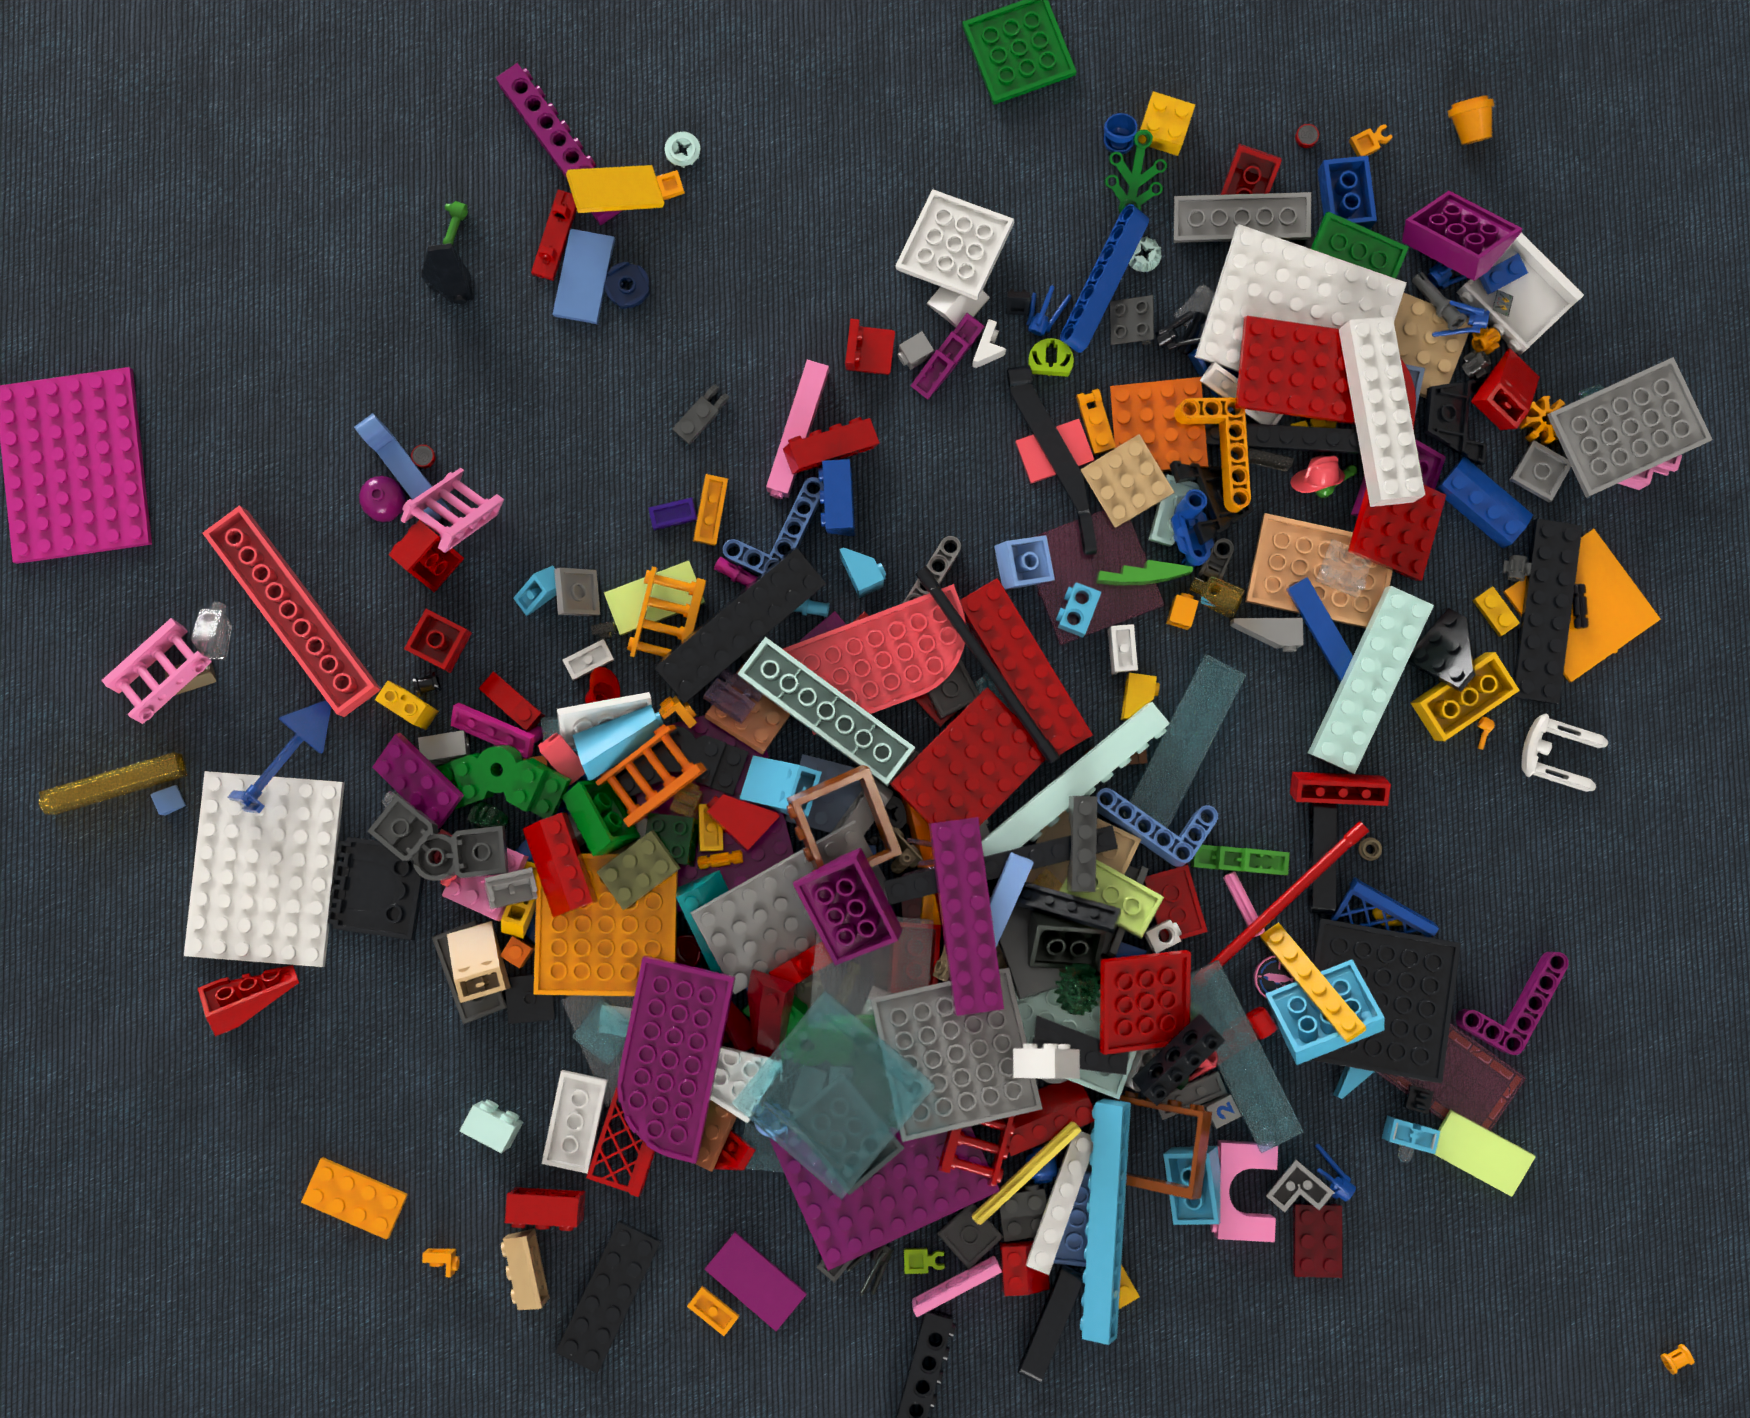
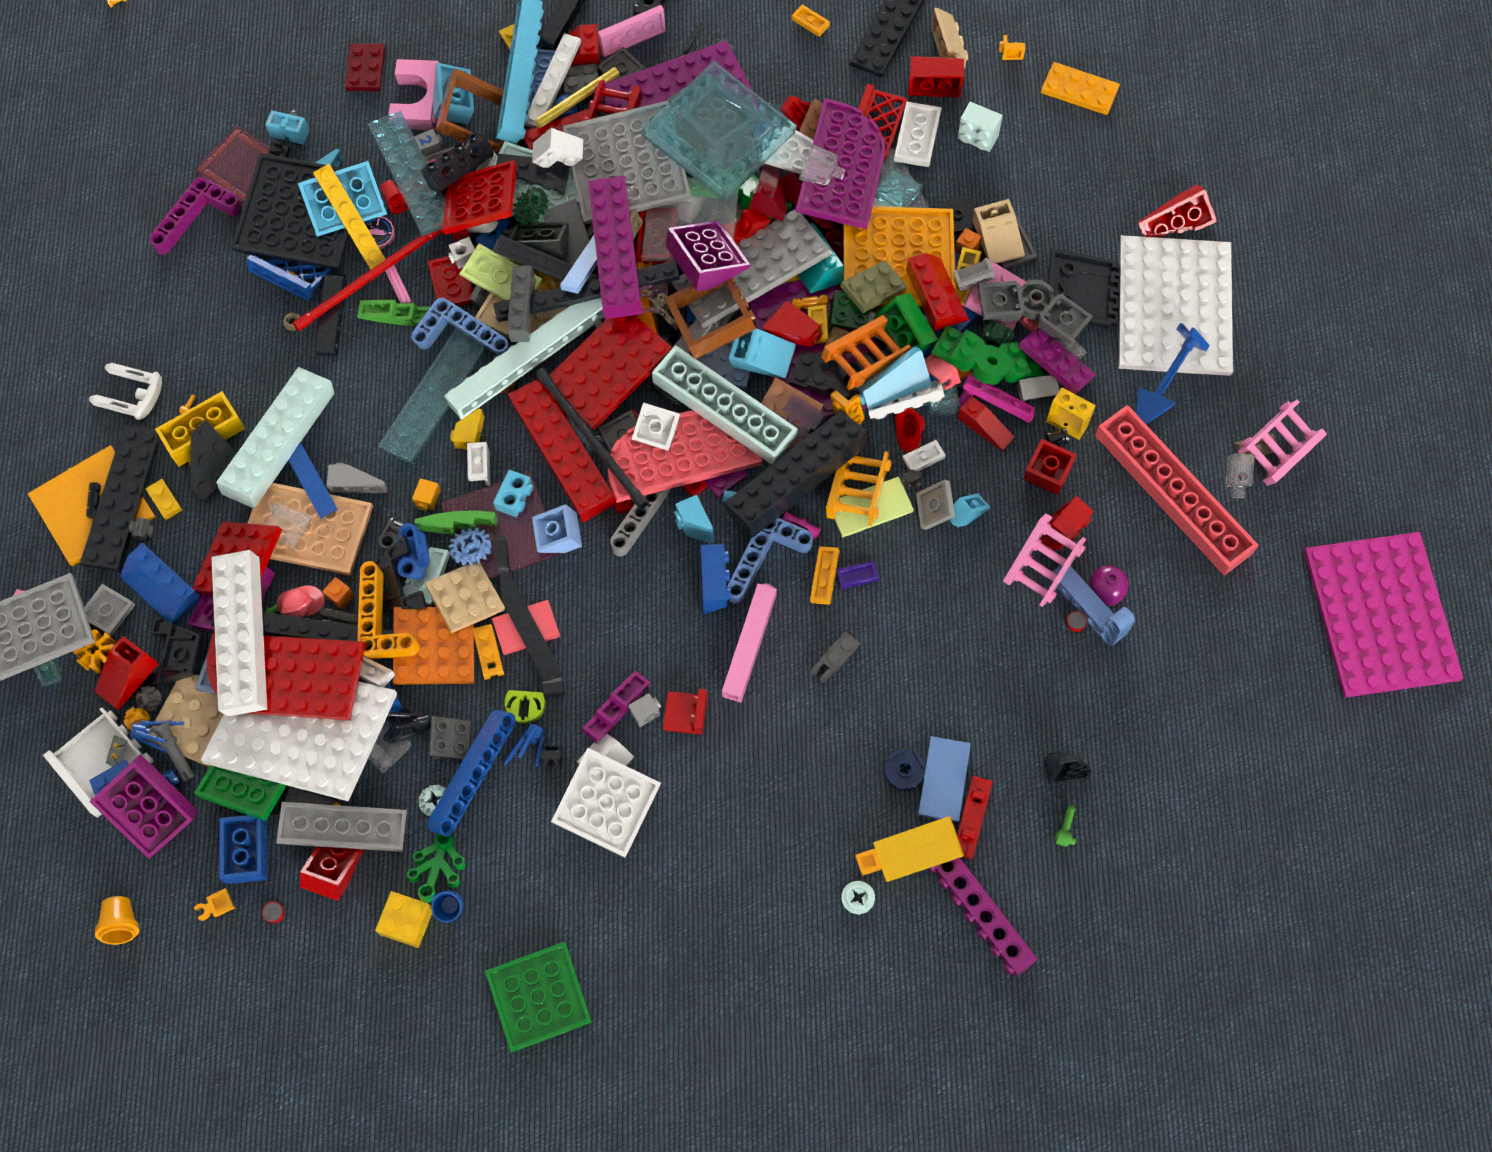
camera: 175 degrees left, 15 degrees down
(112, 784) = (1305, 361): clear yellow brick -> none
(168, 800) = (1260, 351): medium blue slope -> none
(701, 1034) = (820, 166): none -> clear torso
(755, 1281) = (780, 39): magenta tile -> none
(830, 445) = (720, 621): red brick -> none
(909, 680) = (656, 426): none -> white slope
(917, 1260) = (660, 51): lime plate -> none
(986, 350) = (582, 709): white slope -> none
(1126, 533) = (470, 546): none -> medium blue gear
(1227, 599) = (394, 503): clear yellow torso -> none
(1274, 487) = (338, 593): none -> orange brick
(1299, 1181) = (375, 96): light grey brick -> none
(1340, 788) = (313, 358): red brick -> none
(1341, 1186) = (344, 98): blue plant -> none
(1482, 1153) = (234, 119): yellowish green tile -> none

